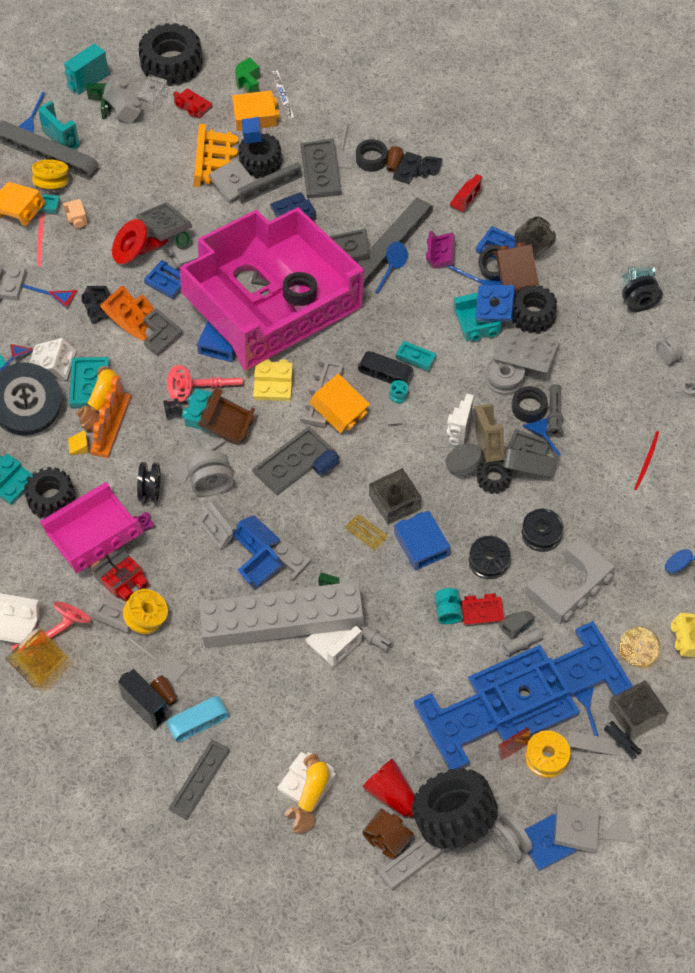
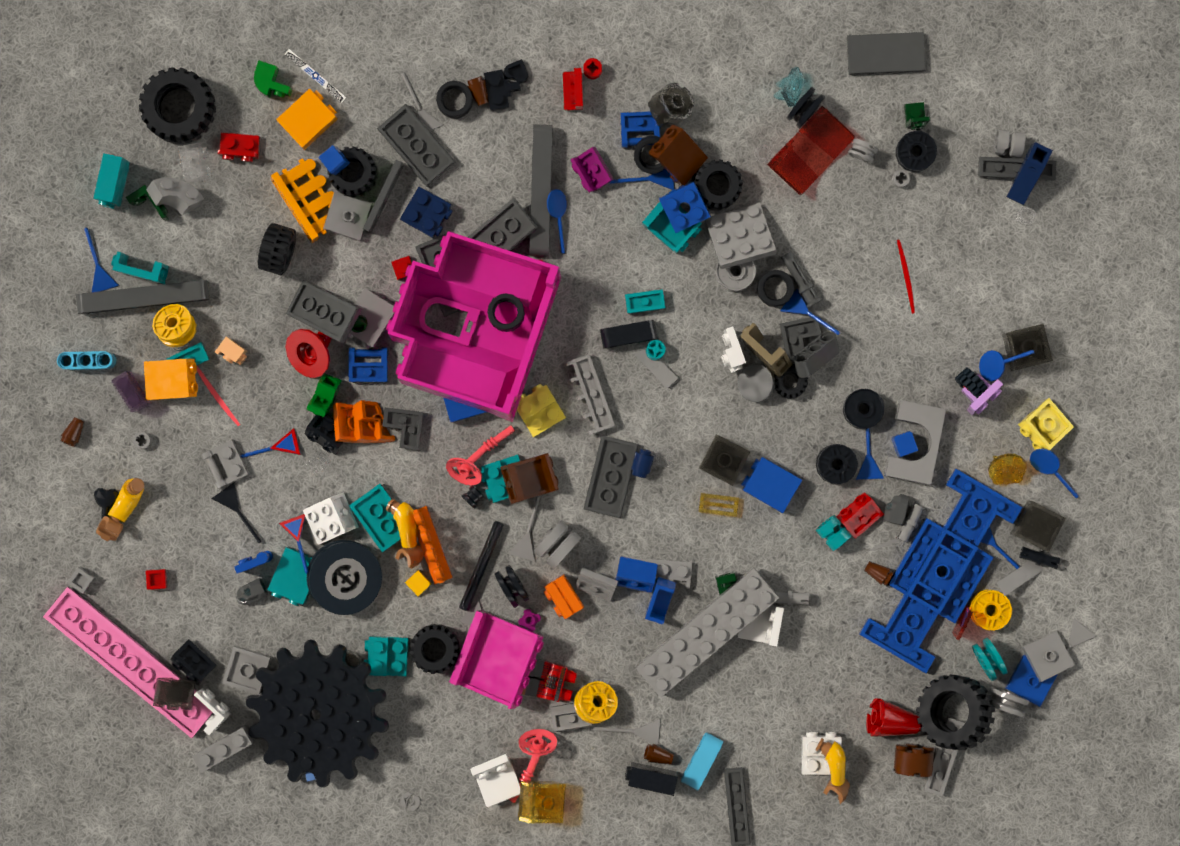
camera: 35 degrees left, 30 degrees up
(120, 275) = (324, 395): none -> green brick
(134, 462) = (481, 566): none -> black axle
(164, 165) = (276, 249): none -> black tyre
(184, 520) = (563, 596): none -> orange brick
(339, 403) = (617, 401): light orange brick -> none
(466, 663) = (879, 573): none -> reddish brown cone
(491, 190) = (592, 72): none -> red wheel
(516, 581) = (869, 468): none -> blue piece
(518, 790) = (989, 659): none -> teal wheel
(560, 575) = (904, 444): none -> blue piece
(626, 329) = (811, 151): none -> clear red panel
(653, 571) = (977, 390): none -> plate
(678, 665) = (1048, 463): none -> blue piece

